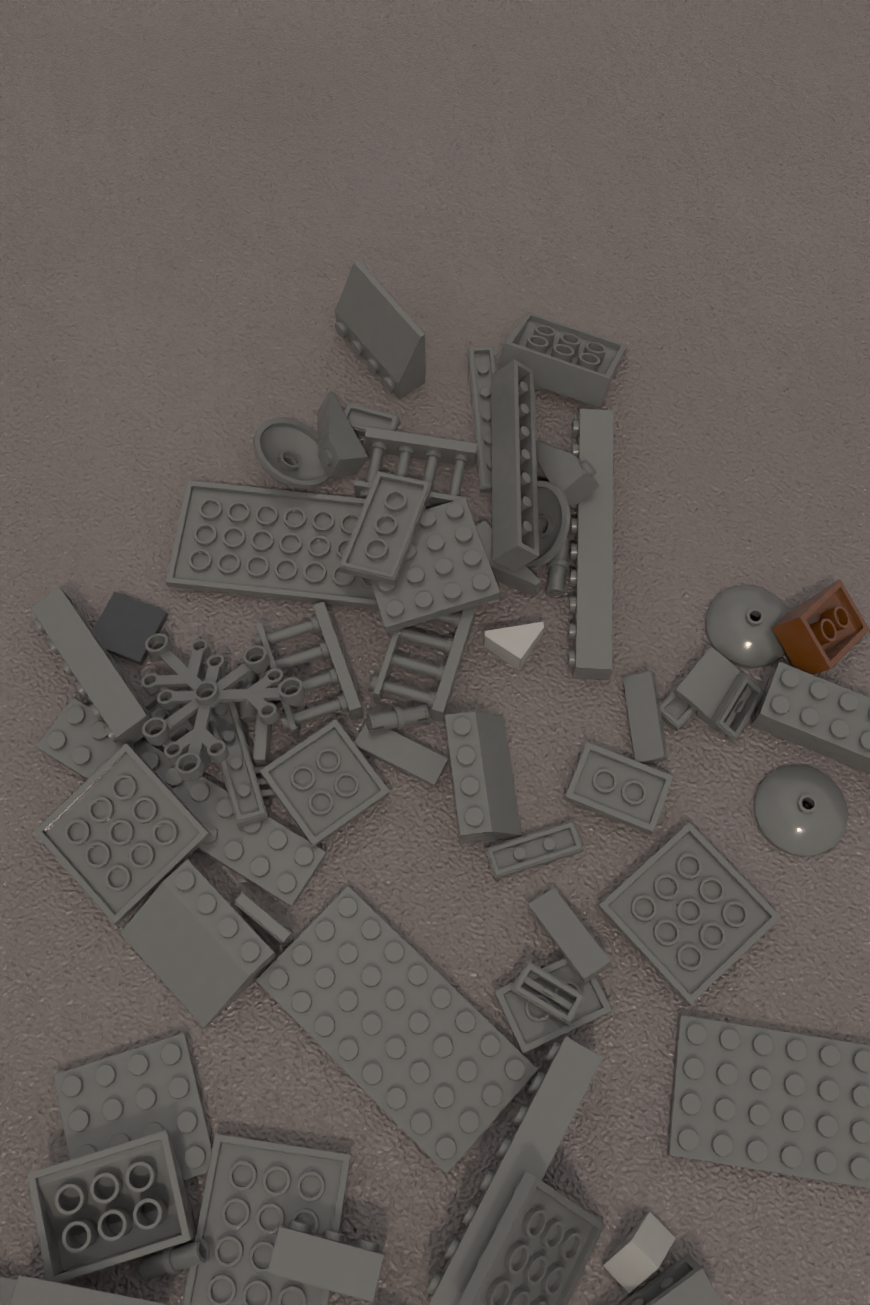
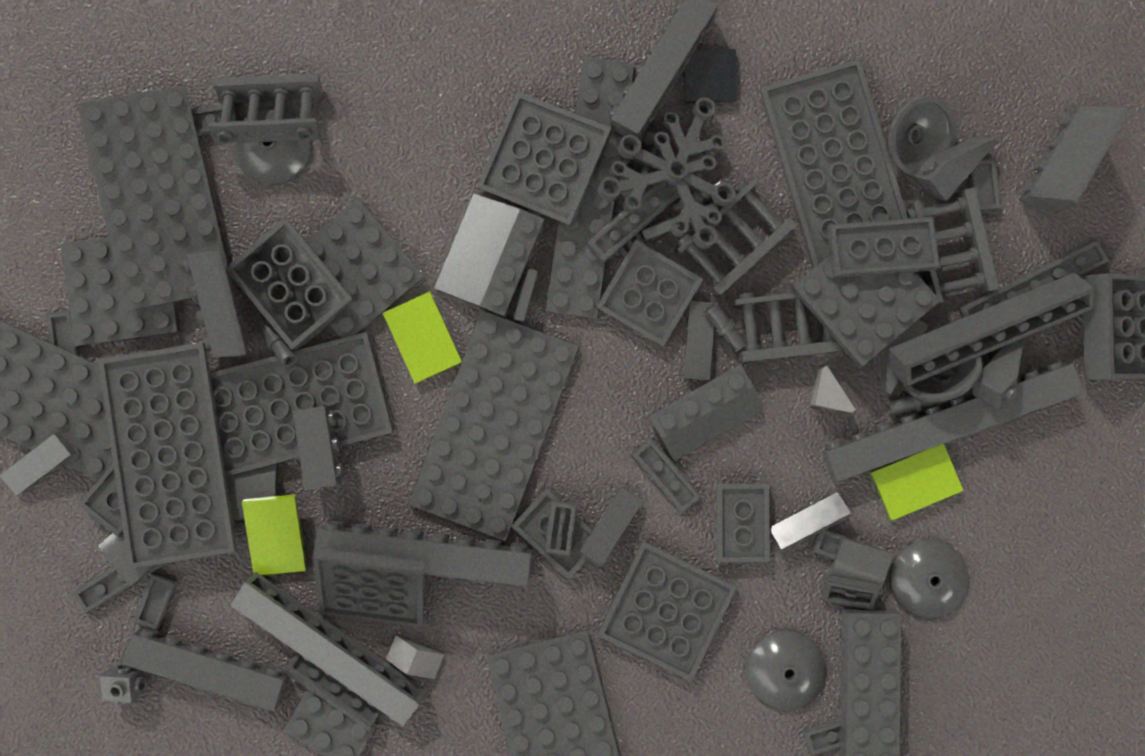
camera: 65 degrees right, 20 degrees up
(254, 1067) = (422, 337): none -> lime tile
(642, 598) = (916, 481): none -> lime tile
(821, 629) = (947, 639): reddish brown slope -> none

